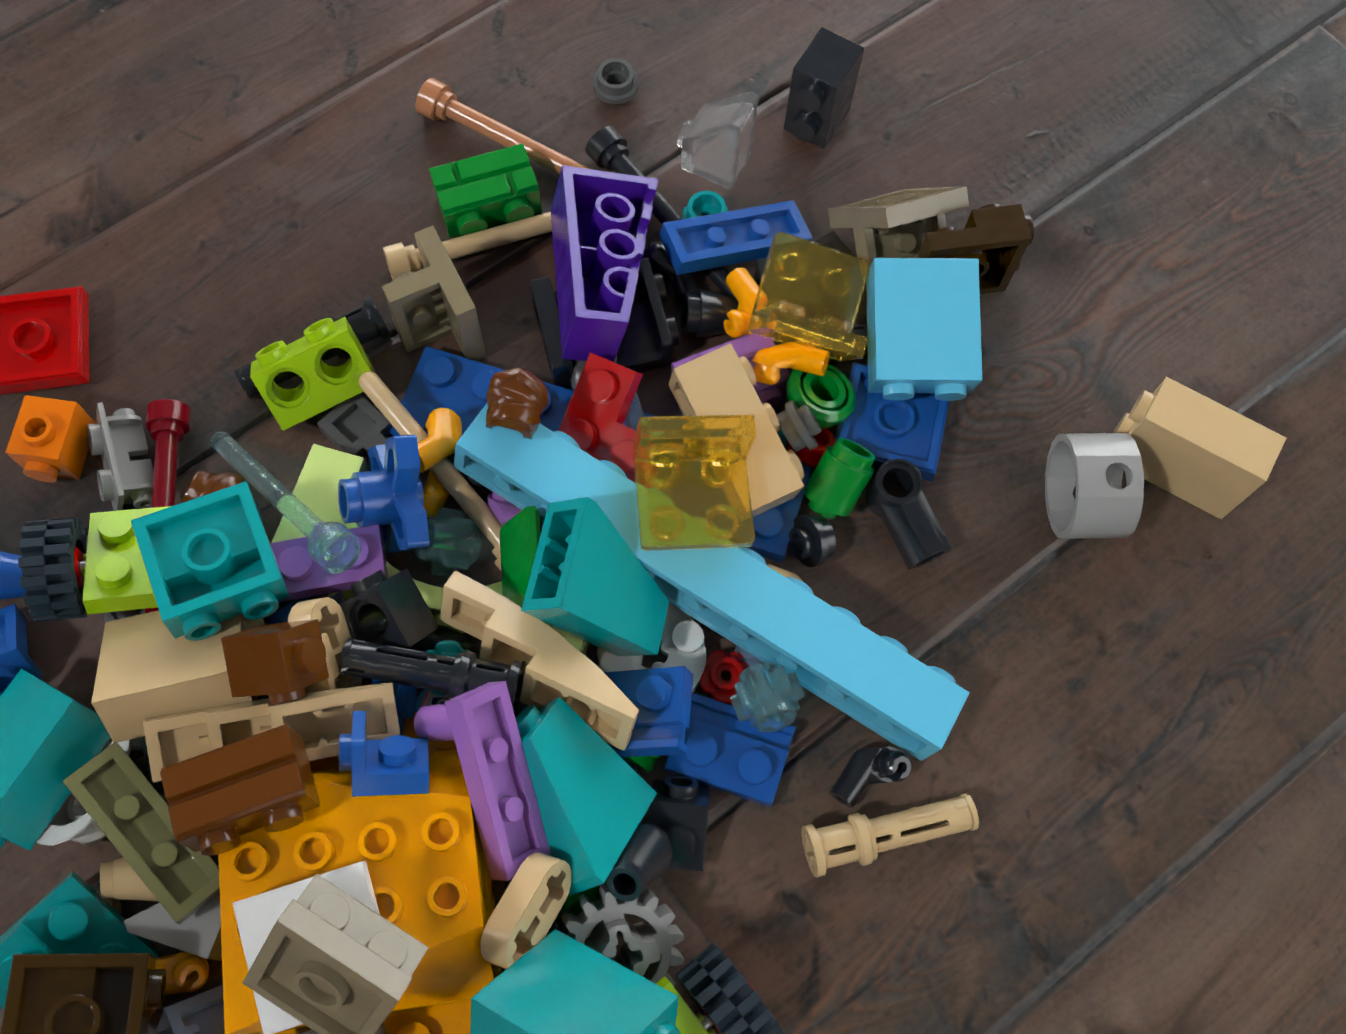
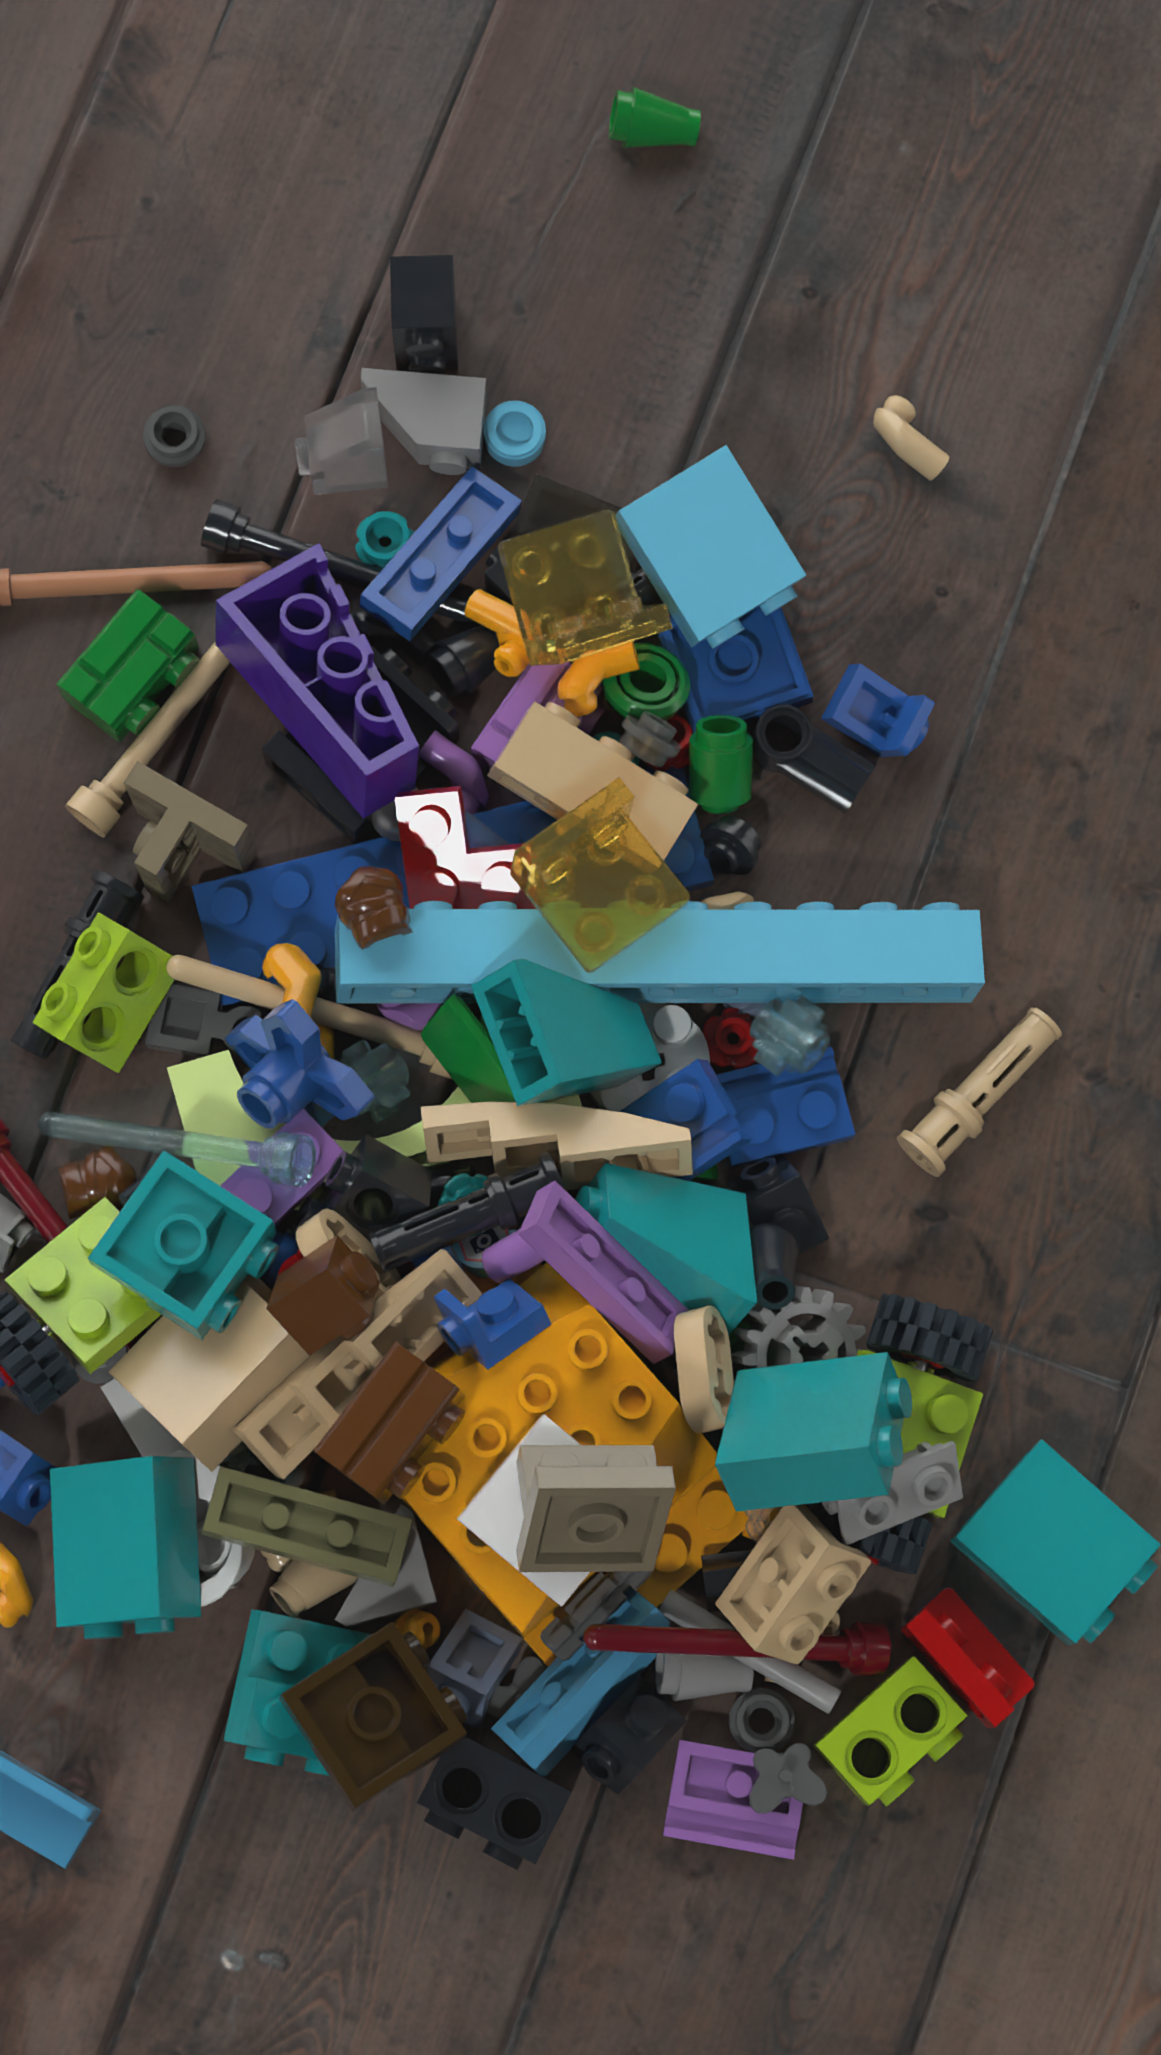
camera: 30 degrees left, 10 degrees up
(656, 375) = (460, 769): none -> medium lavender arm
(790, 156) = (433, 416): none -> light grey slope
(830, 194) = (514, 433): none -> medium azure tile
(867, 767) = (925, 1040): black arm -> none
(897, 221) = (606, 430): dark tan bracket -> none
(975, 513) = (878, 713): none -> blue bracket
(993, 235) = (719, 410): dark brown plate -> none
(1045, 72) = (651, 121): none -> green cone
(1096, 468) = (979, 614): light grey piece -> none
(1104, 353) = (908, 443): none -> tan arm
(1200, 447) = (1057, 509): tan brick -> none

